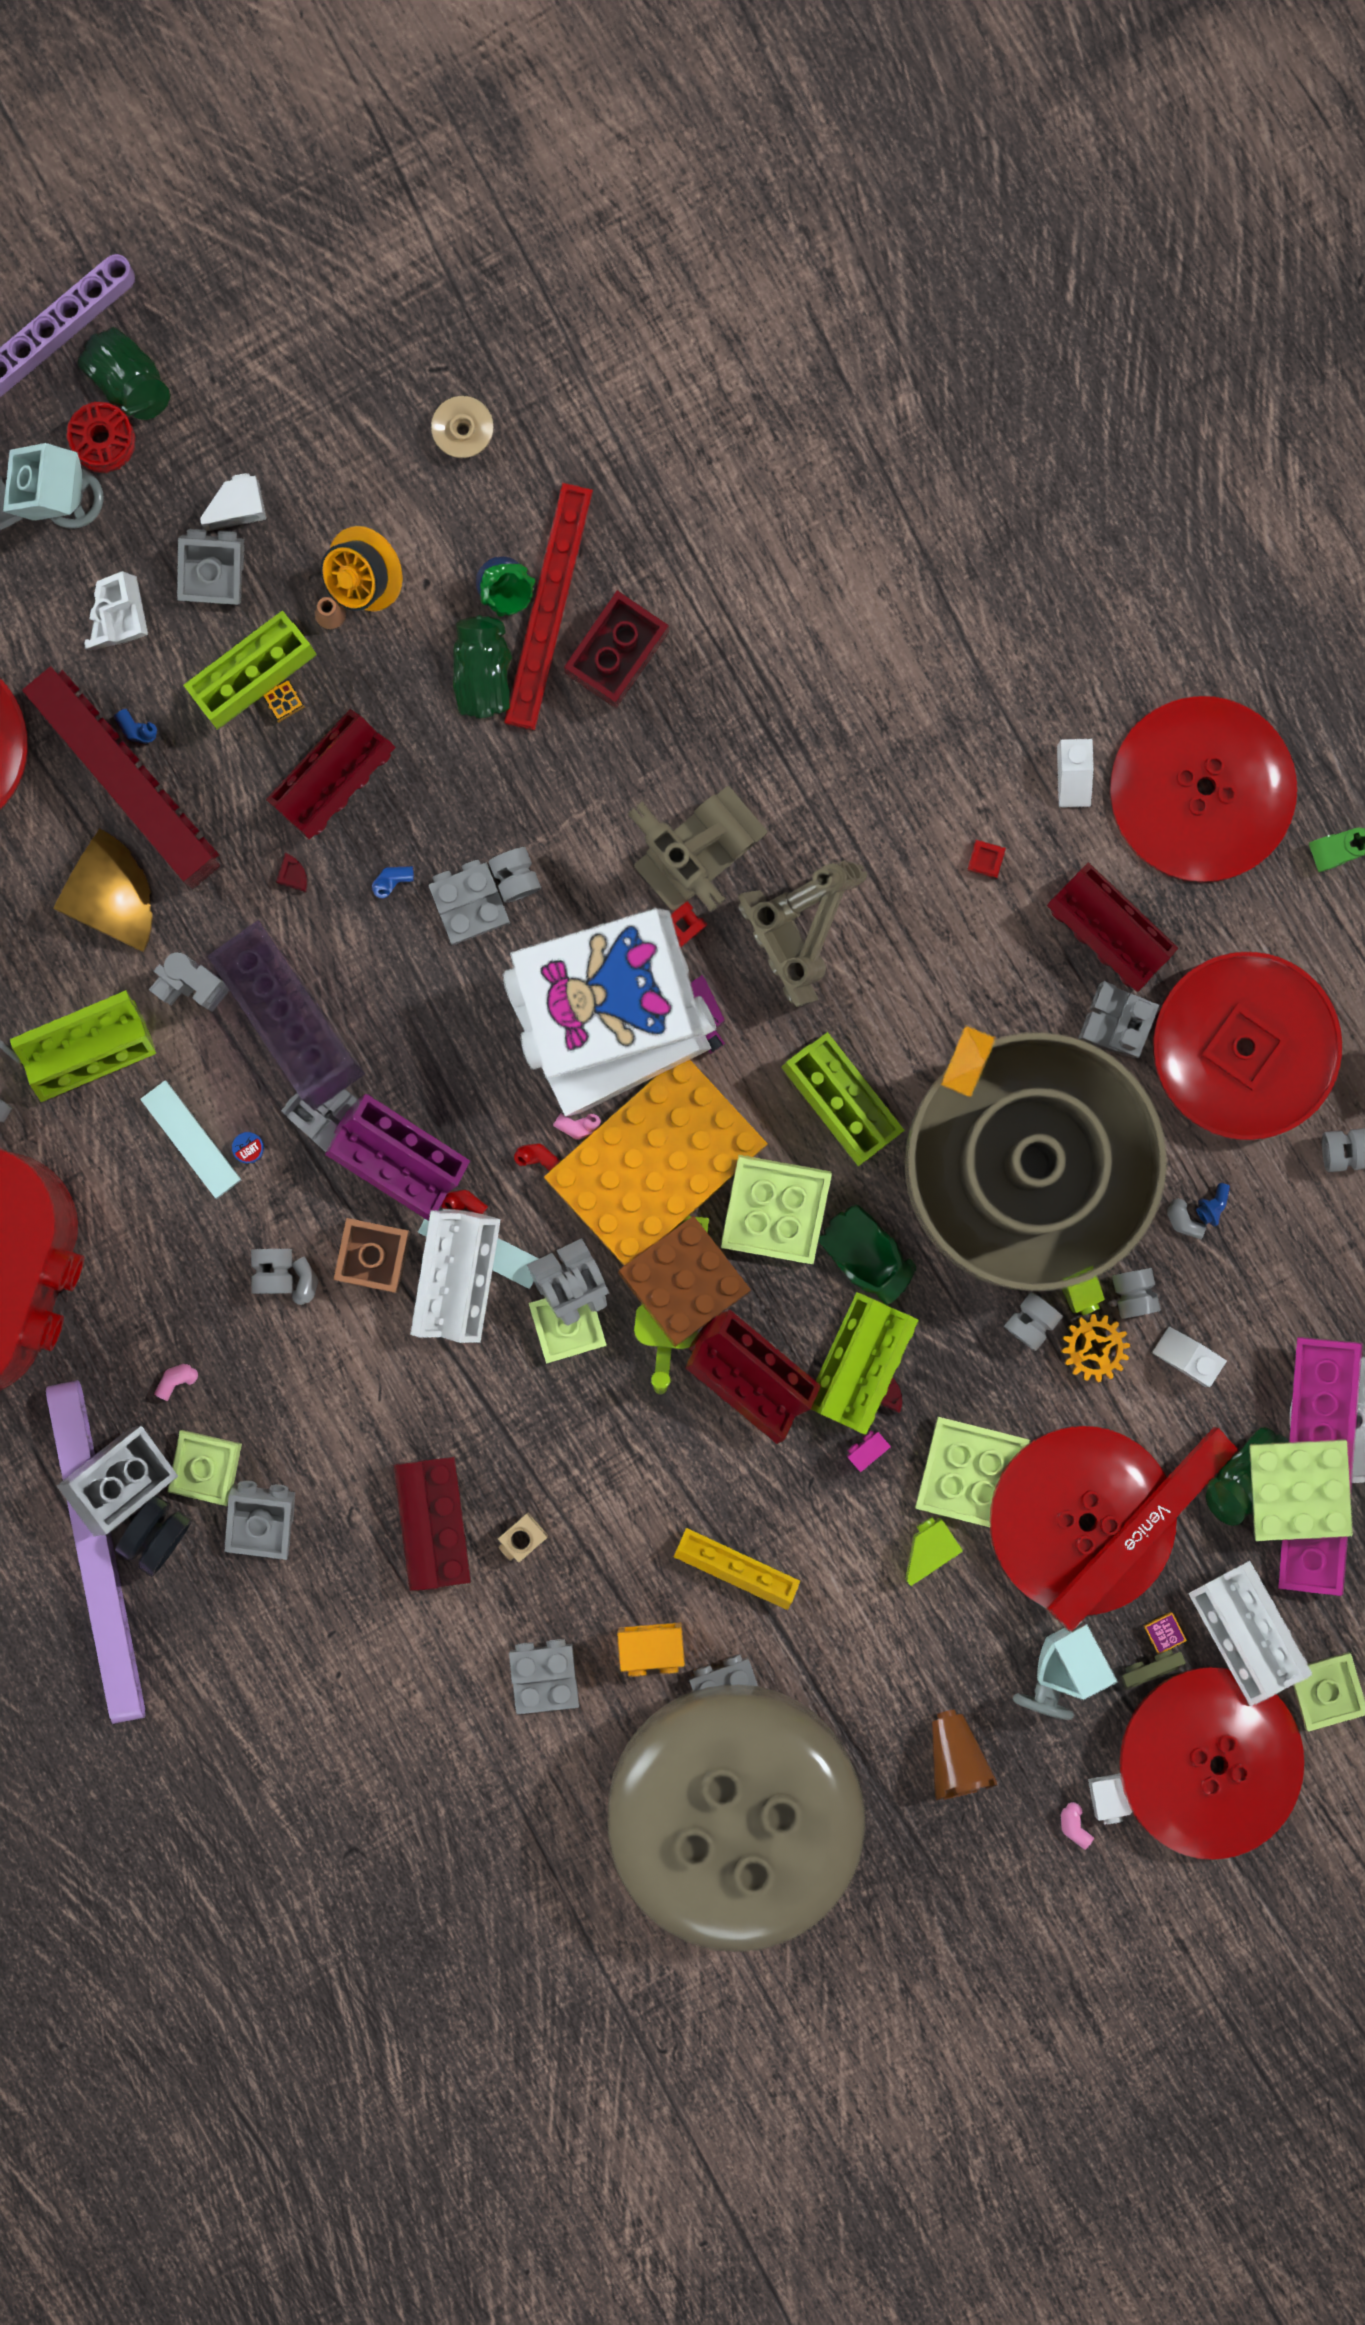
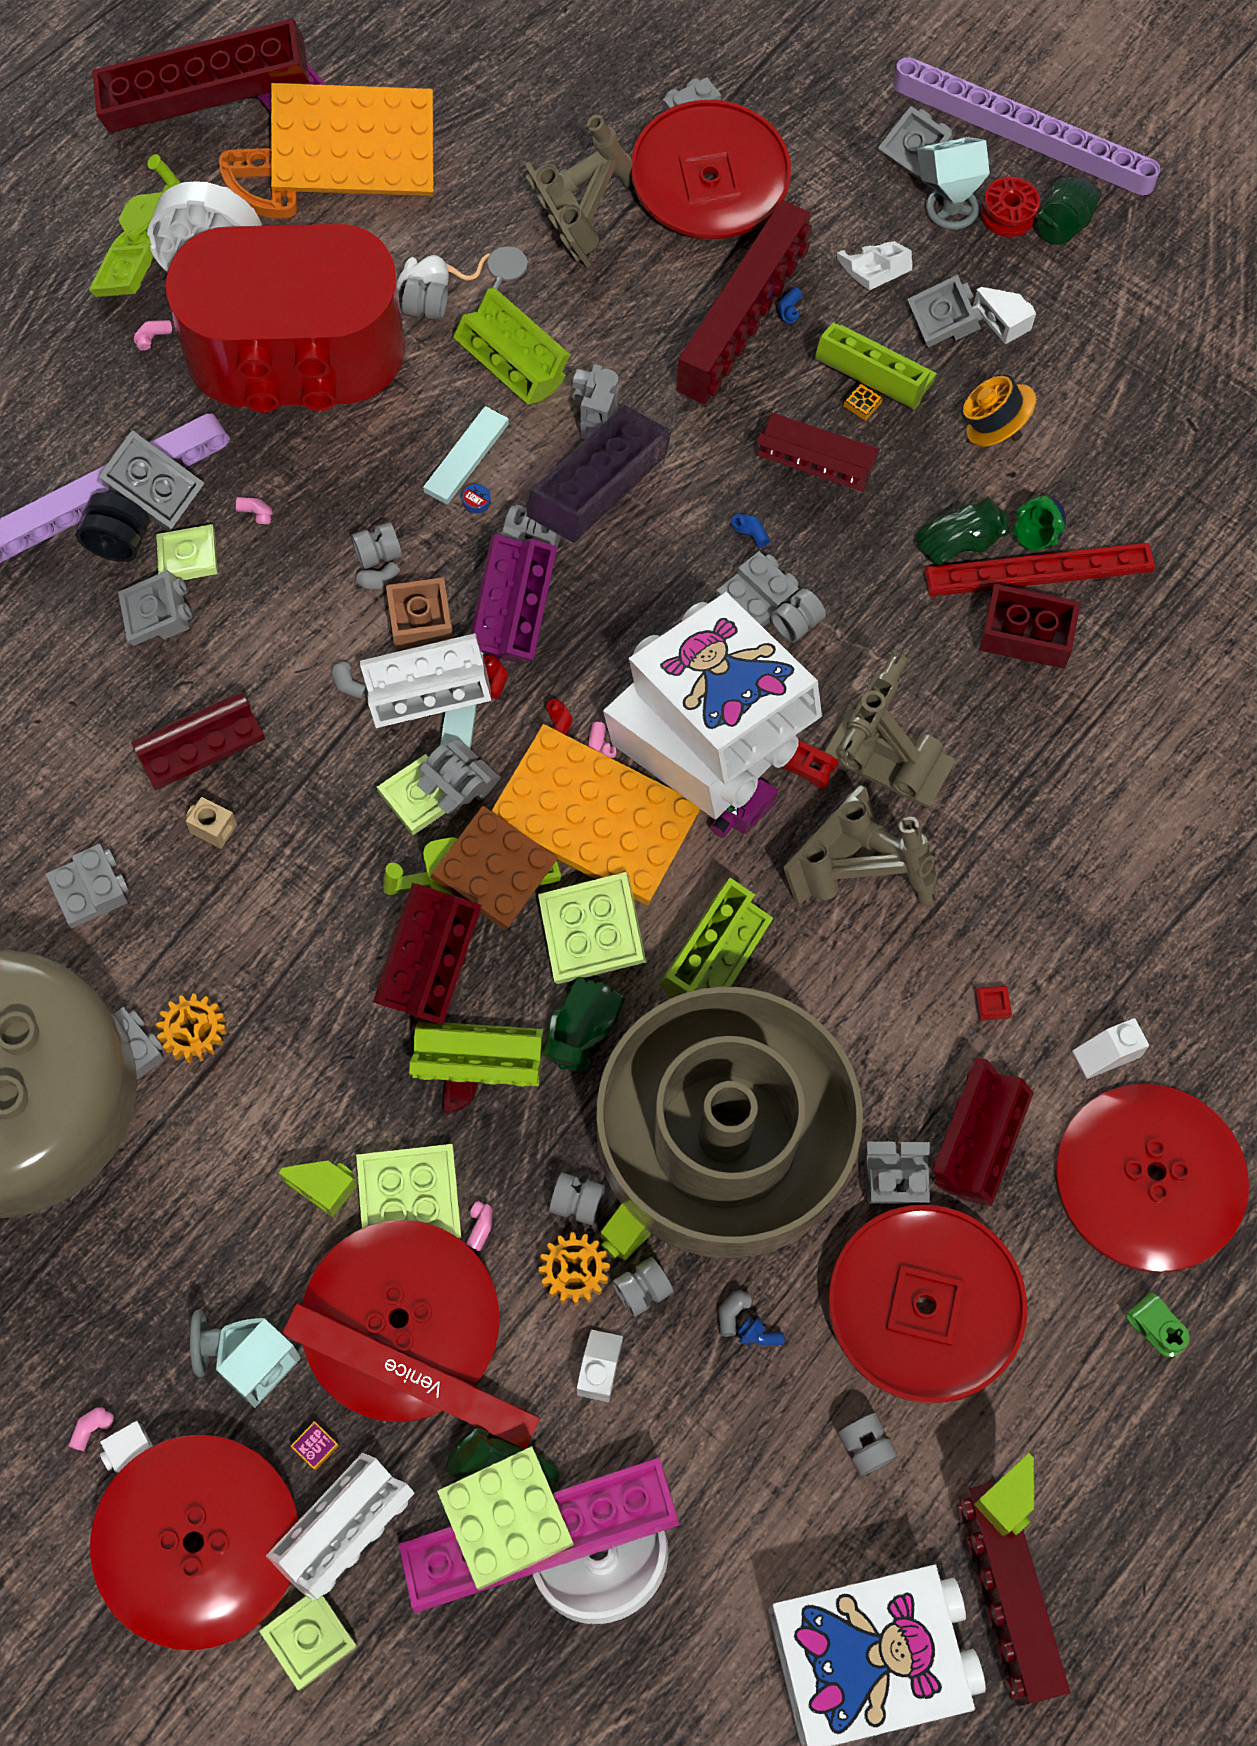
camera: 65 degrees right, 20 degrees down
(109, 892) = (646, 328): pearl gold brick -> none
(292, 874) = (722, 456): dark red tile -> none
(331, 619) = (951, 406): nougat cone -> none
(413, 1355) = (344, 682): none -> light grey arm
(459, 412) = (1156, 442): tan dish -> none
(651, 1648) = (141, 960): light orange brick -> none
(731, 1635) = (202, 1023): none -> light orange gear
(737, 1569) = (243, 1015): yellow plate -> none
(867, 1451) = (396, 1091): dark pink piece -> none
(957, 1758) = (121, 1282): dark orange cone -> none
(968, 1061) = (797, 1013): light orange slope -> none
(1024, 1415) = (483, 1225): none -> bright pink arm
(1165, 1663) = (281, 1454): olive plate -> none

